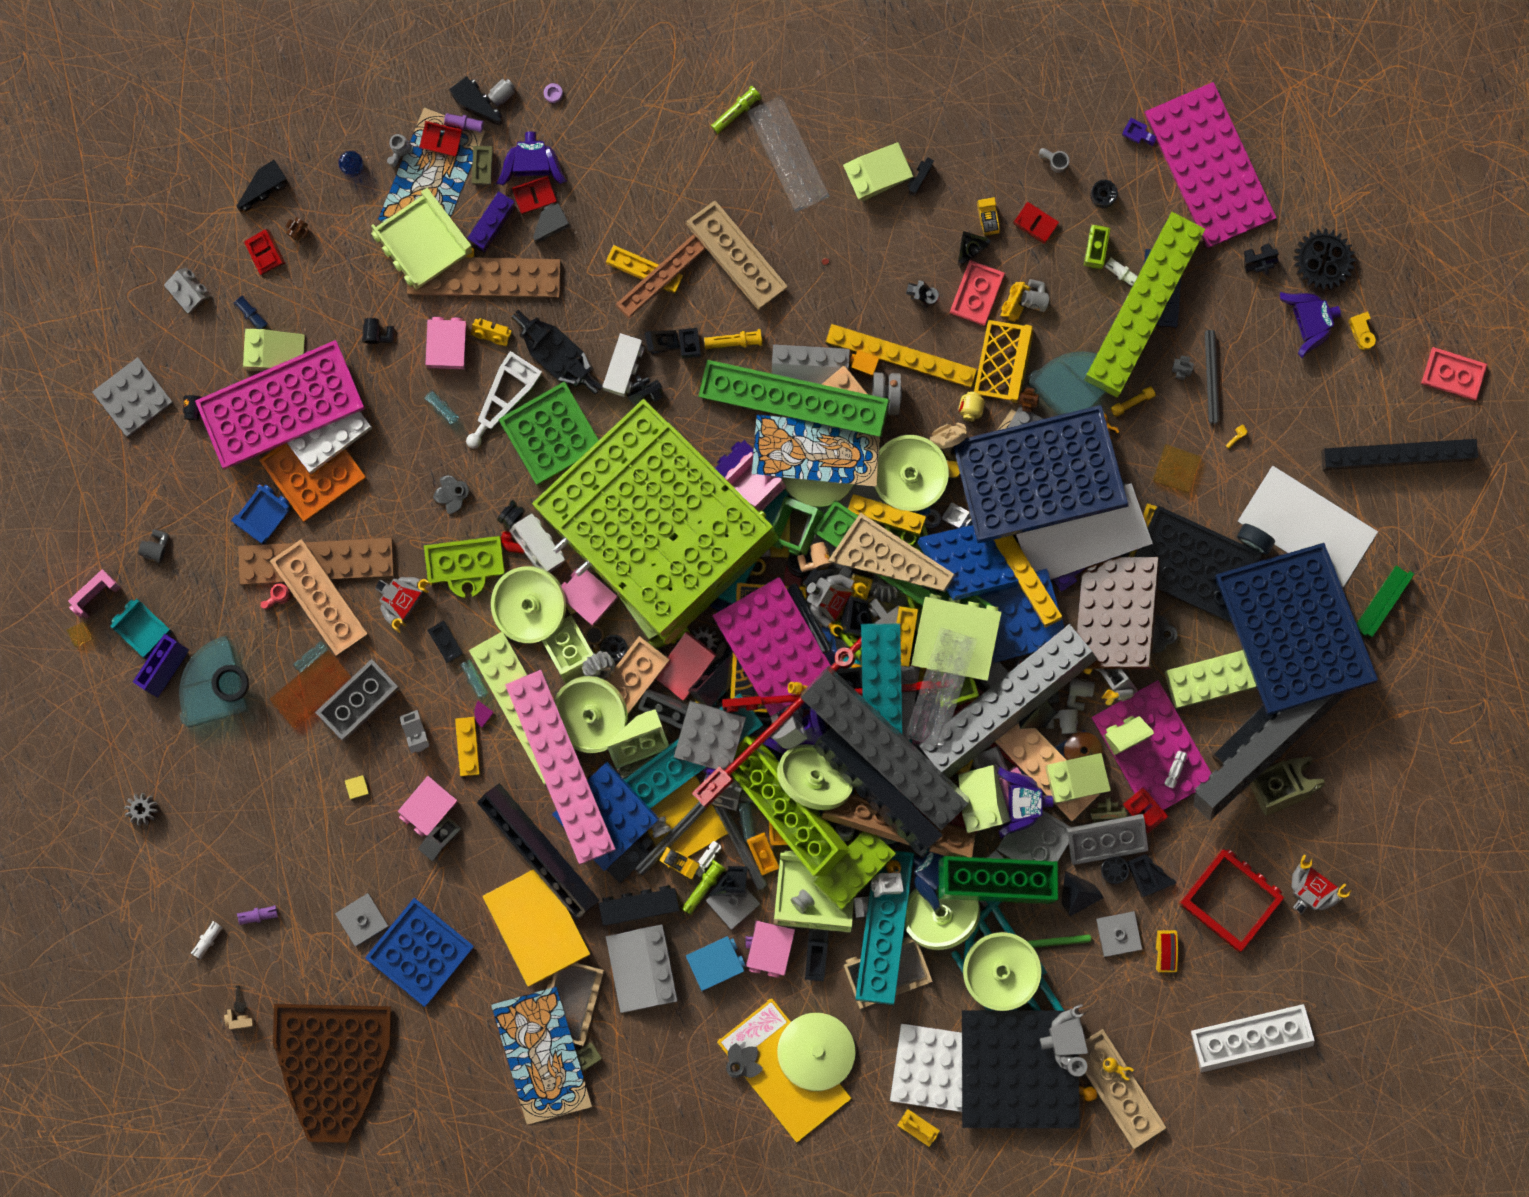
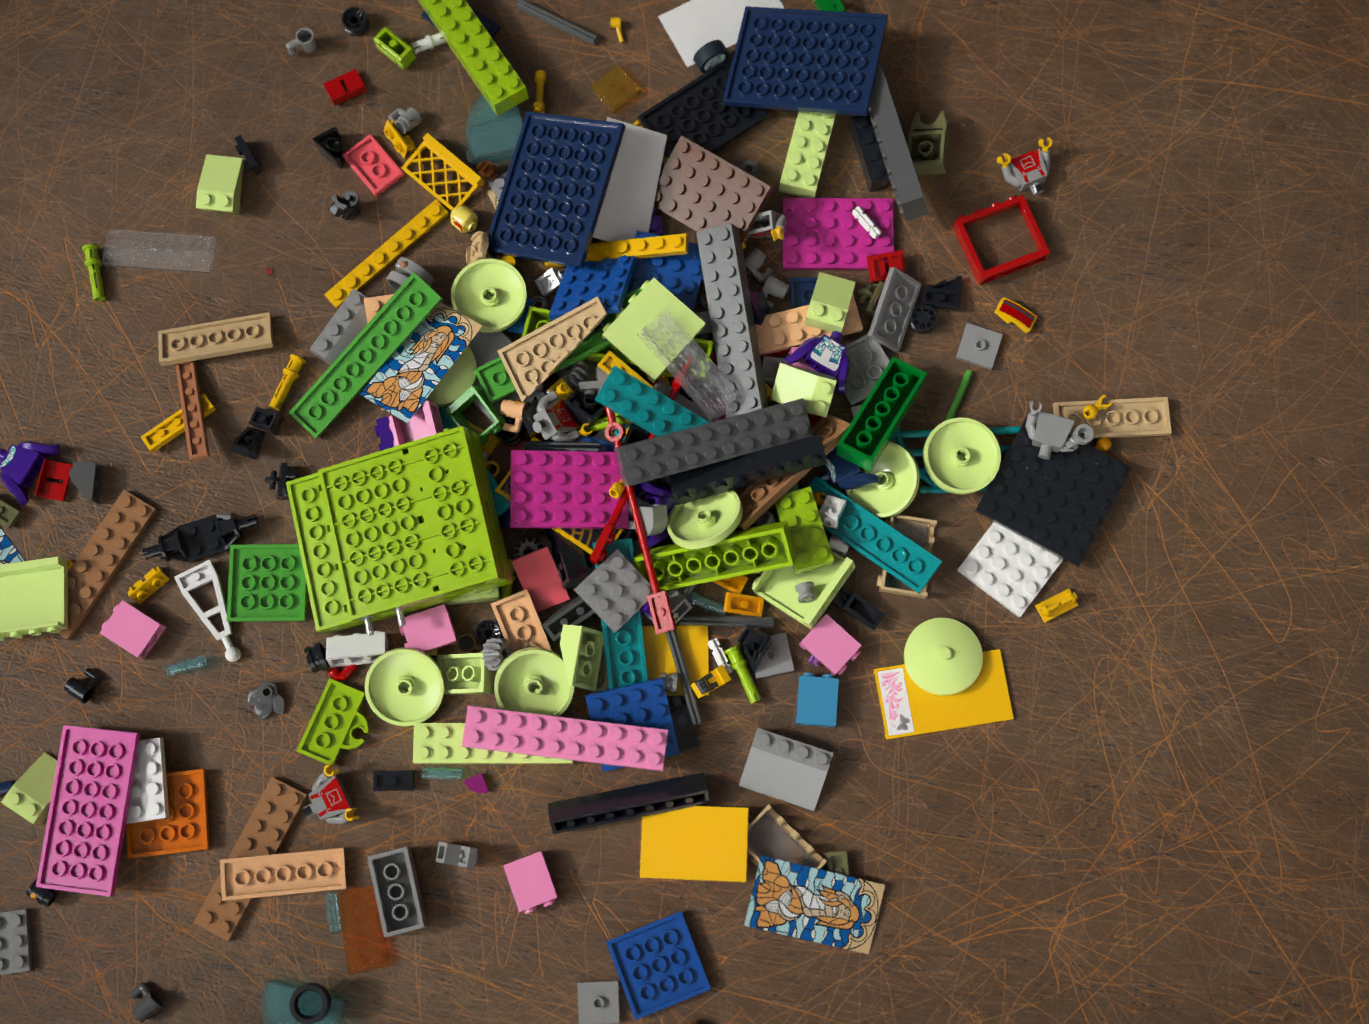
camera: 55 degrees left, 5 degrees down
(262, 514) = (178, 883): blue panel -> none
(279, 594) = (259, 909): coral piece -> none
(356, 787) = (475, 937): light yellow tile -> none
(439, 838) = (566, 887): dark grey slope -> none
(467, 746) = (498, 814): yellow plate -> none
(491, 222) = (52, 529): dark purple brick -> none
(623, 365) = (248, 486): white brick -> none
(638, 906) = (729, 740): black brick -> none
(745, 1059) = (915, 723): dark grey plate -> none
(863, 363) = (374, 285): light orange brick -> none
(887, 515) = (523, 325): yellow plate -> none
(988, 216) = (314, 120): leg -> none
(1078, 894) = (928, 359): black slope -> none
(1079, 740) = (797, 288): reddish brown dish -> none
(1127, 735) = (817, 240): yellowish green slope -> none
(1182, 367) = (535, 38): dark grey gear -> none
(1252, 1038) = (1126, 286): white arch -> none

